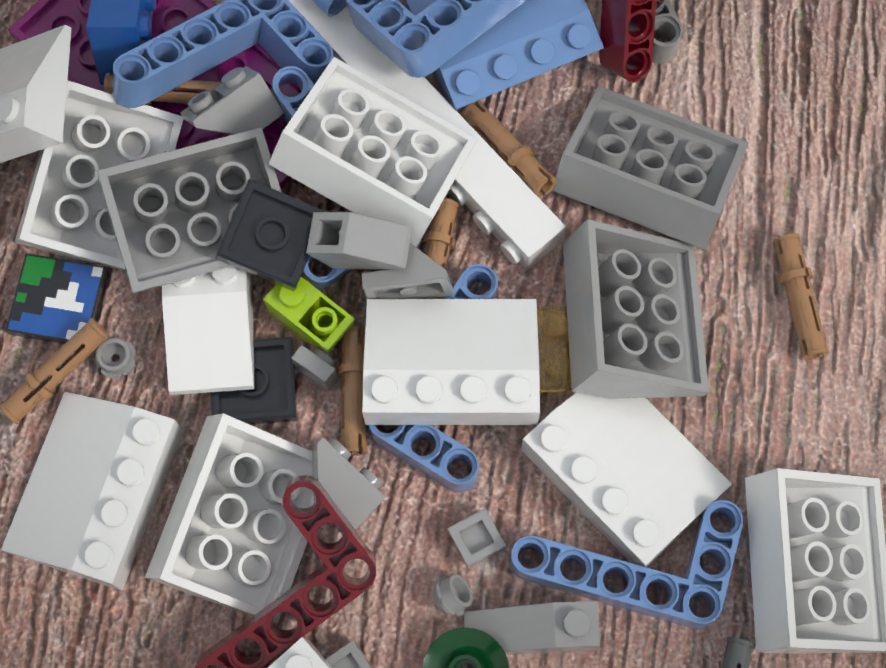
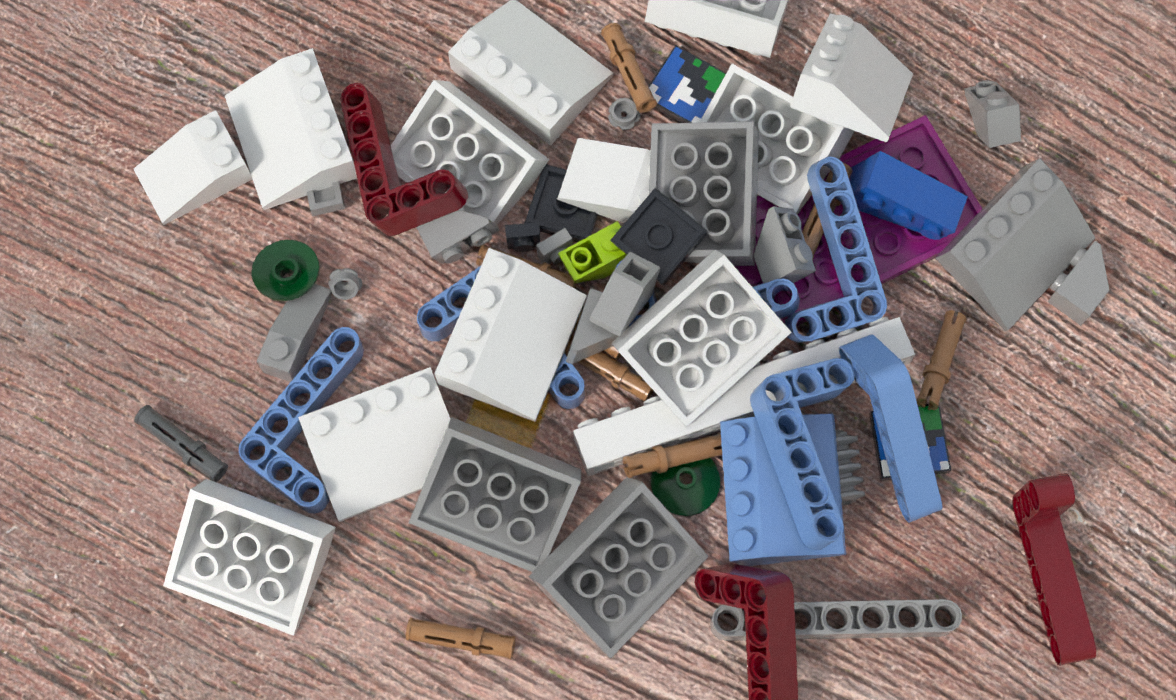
camera: 110 degrees right, 0 degrees up
(316, 408) = (522, 236): none -> black plate
(476, 538) = (378, 315): light grey plate -> none
(549, 130) = (689, 498): none -> dark green dish

